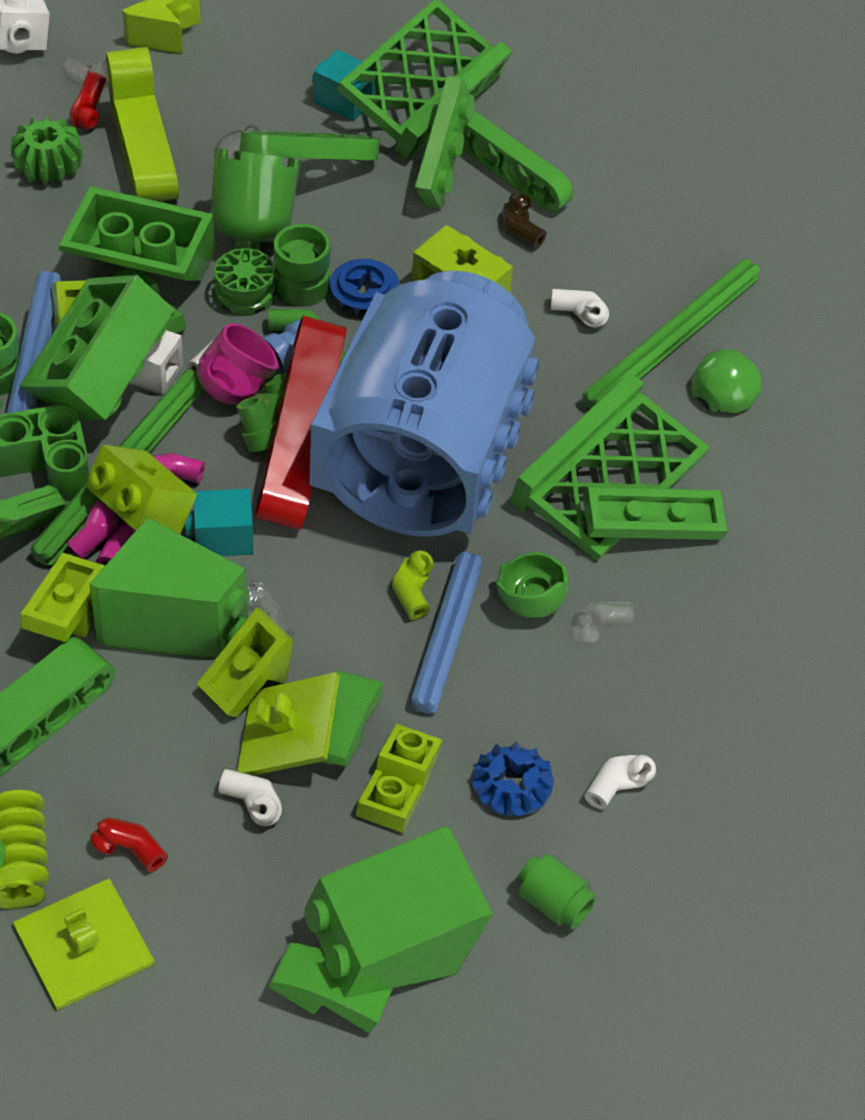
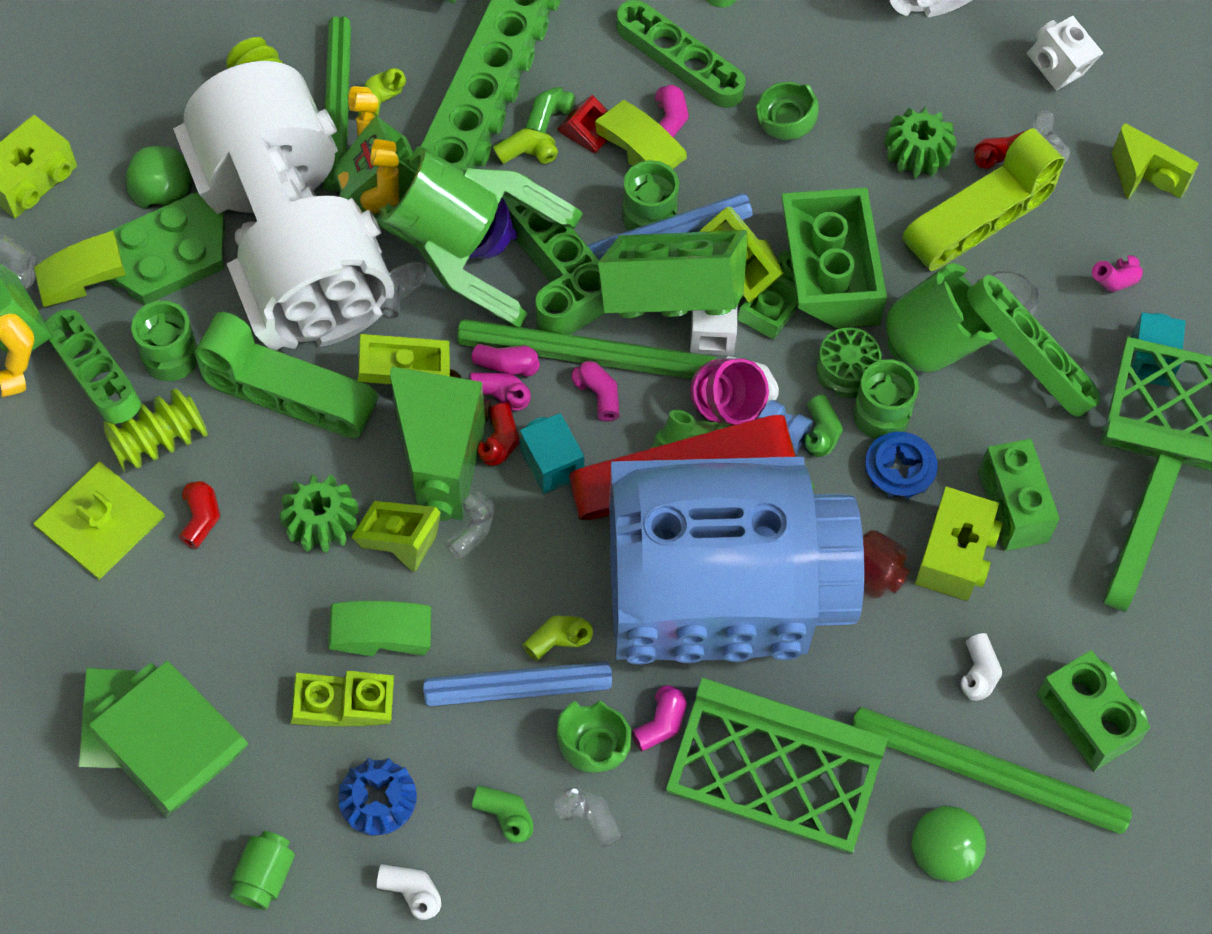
camera: 70 degrees right, 10 degrees up
(140, 488) = (540, 370): lime brick -> none
(189, 730) = (315, 497): none -> bright green gear
(257, 794) = (282, 593): white arm -> none
(258, 79) = (1125, 275): none -> dark pink arm
(289, 725) = (352, 587): lime piece -> none
(427, 207) = (1017, 482): none -> bright green brick
(445, 142) = (1112, 461): bright green plate -> none
(517, 221) = (1065, 572): dark brown arm -> none
(525, 523) = (667, 719): none -> dark pink arm
(573, 677) = (509, 809): none -> bright green arm
(652, 247) = (1082, 714): none -> bright green brick
(654, 513) = (730, 822): bright green plate -> none

